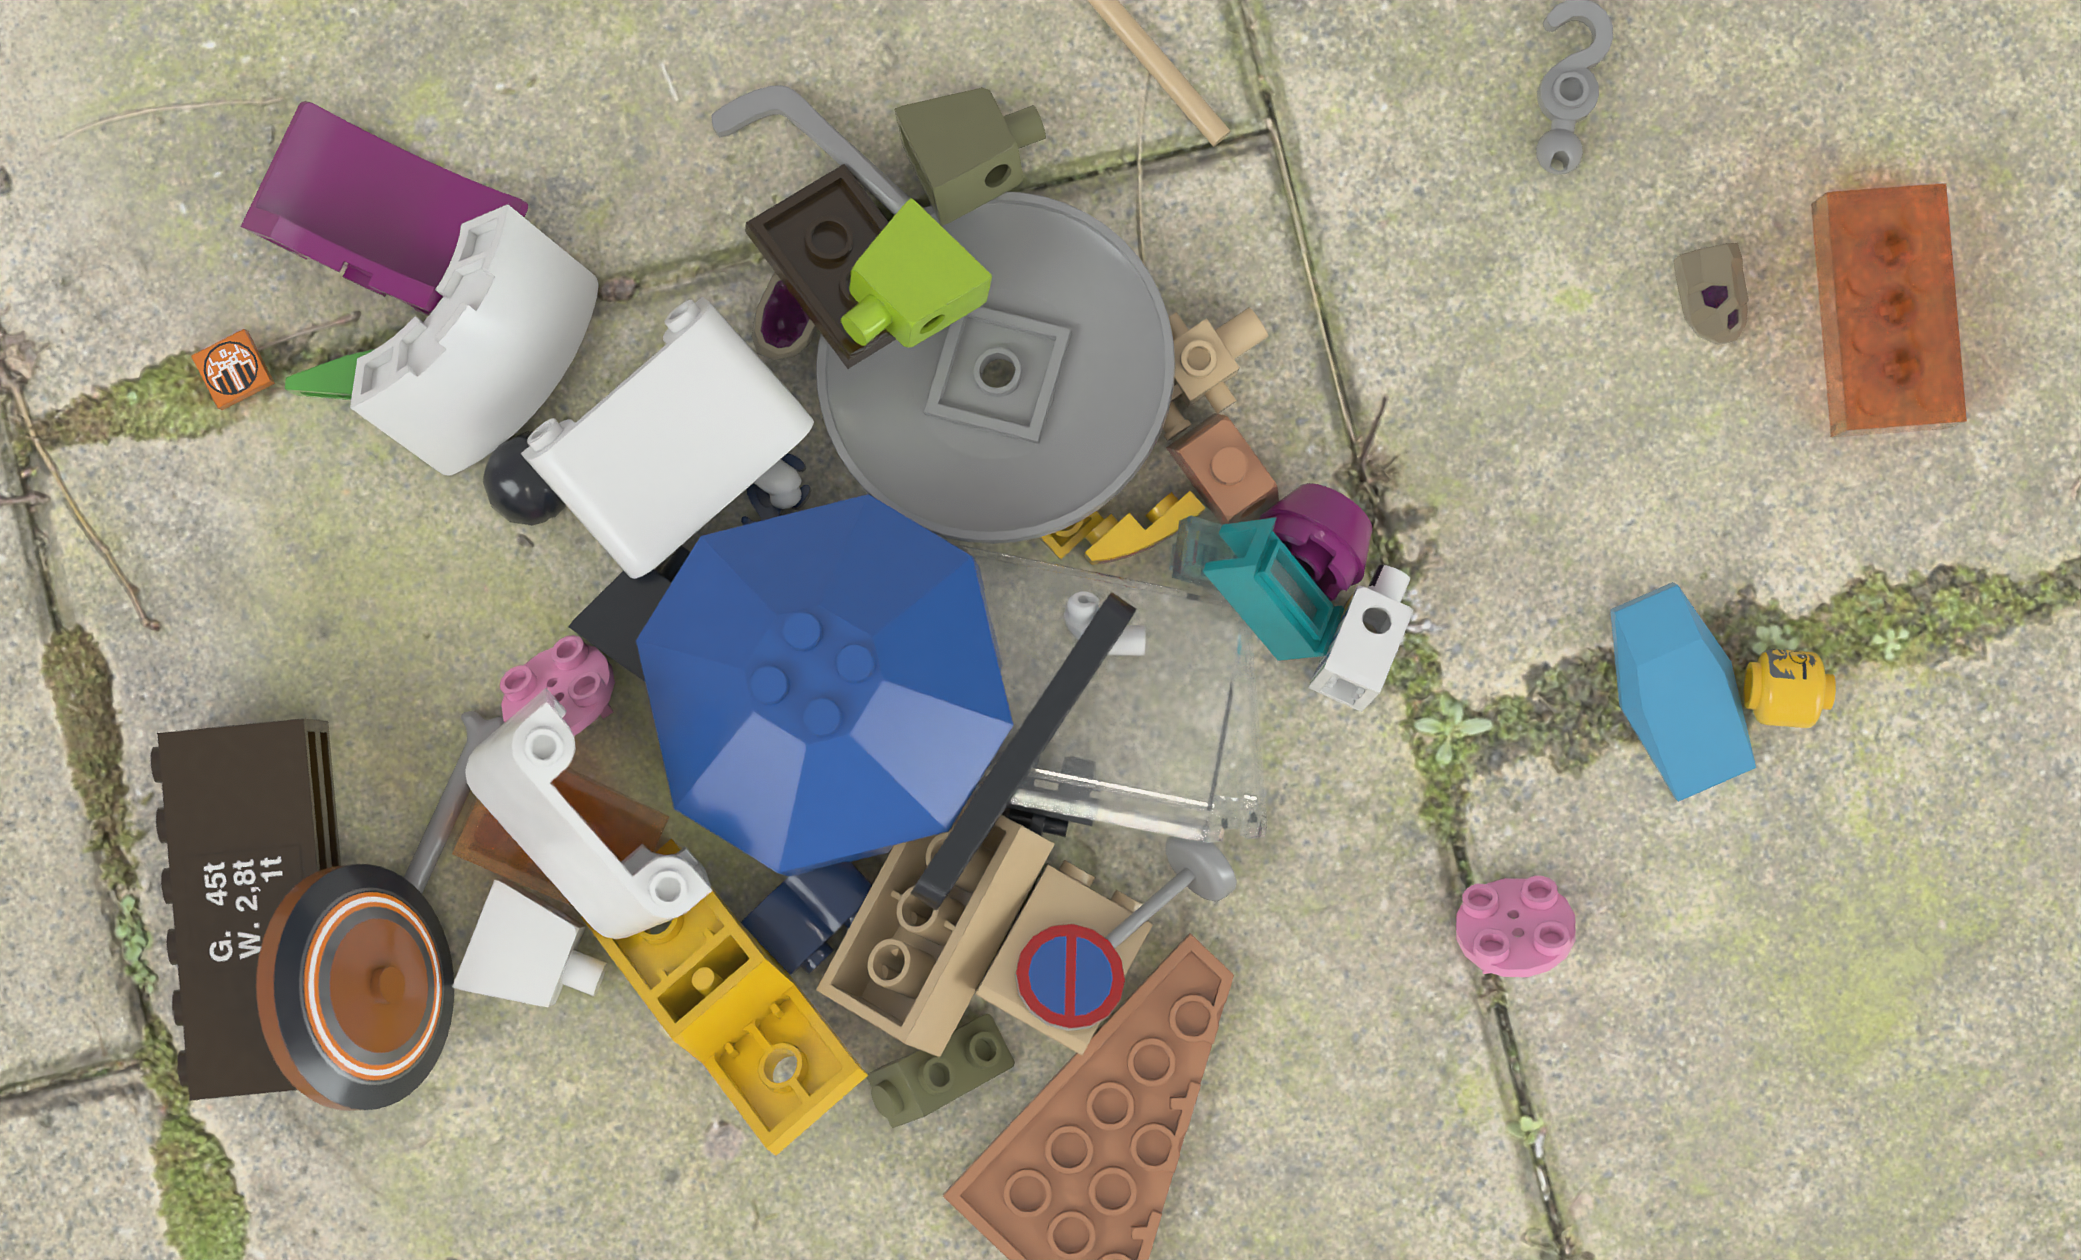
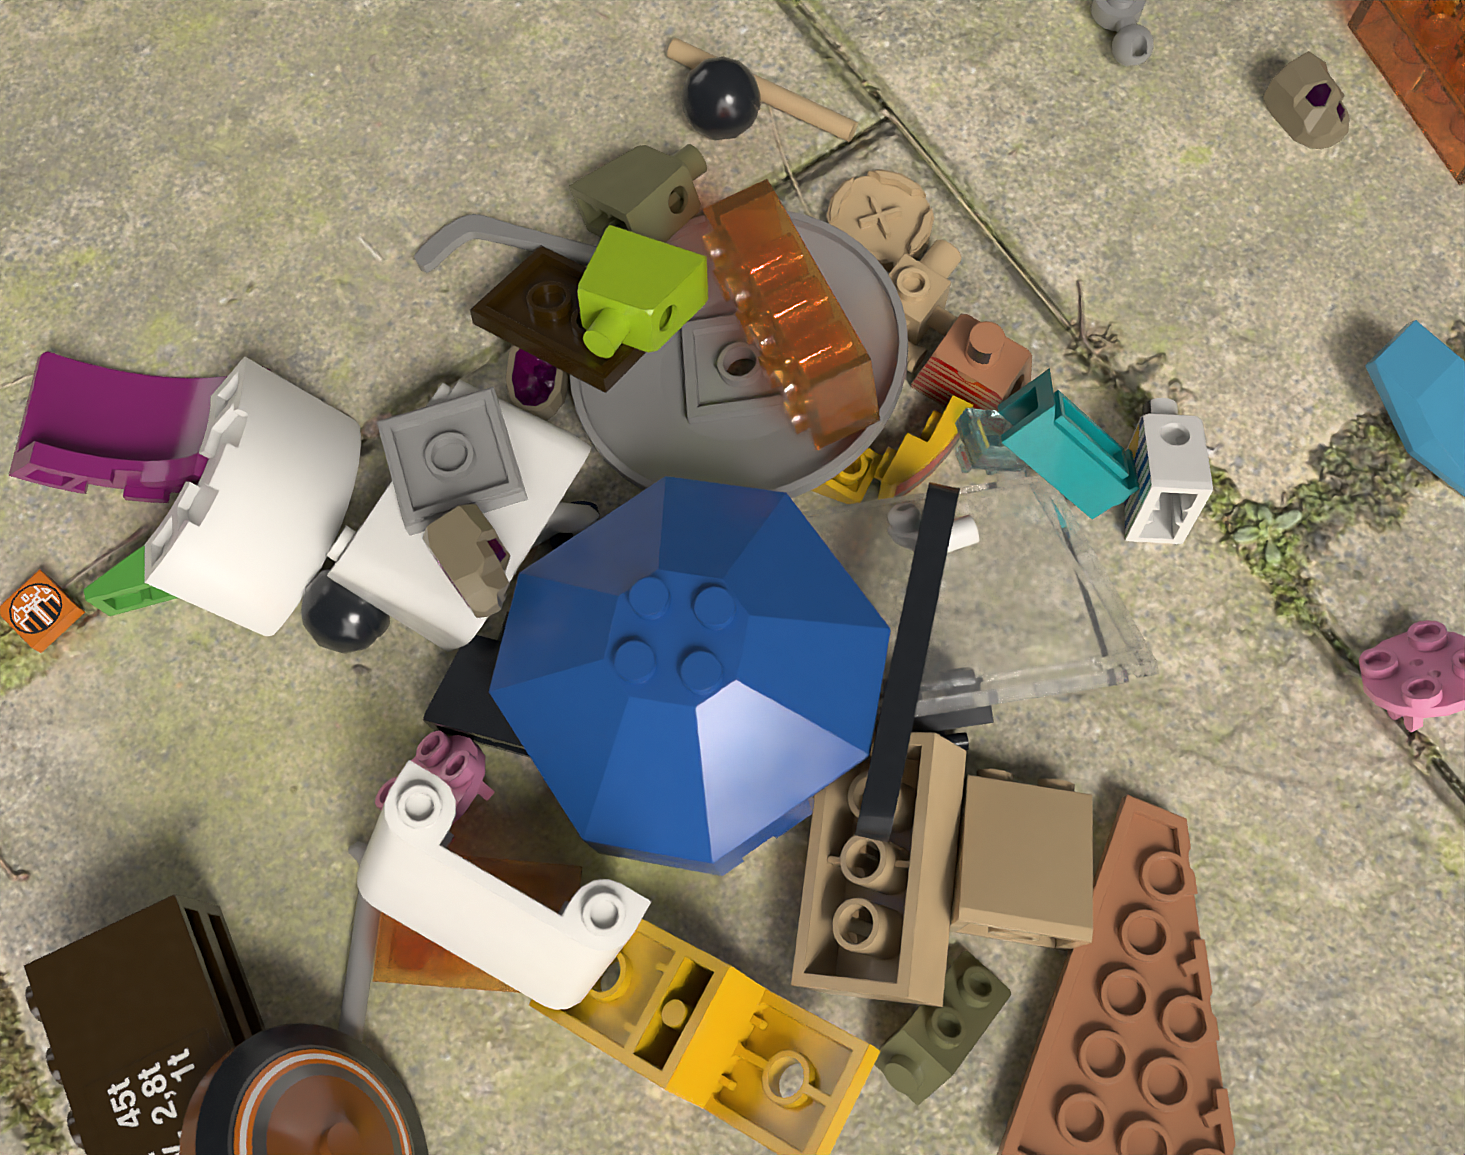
camera: 15 degrees left, 15 degrees down
(526, 950) = (482, 1061): white torso -> none
(660, 515) = (470, 557): none -> dark tan rock
(674, 399) = (451, 458): none -> light grey tile
(806, 913) = (752, 912): dark blue brick -> none
(1047, 371) = (790, 316): none -> clear orange brick
(1075, 975) = (1044, 863): piece -> none
(1095, 50) = (721, 98): none -> black hair
(1207, 254) = (884, 215): none -> tan tile
(1324, 535) = (1097, 385): magenta cone -> none

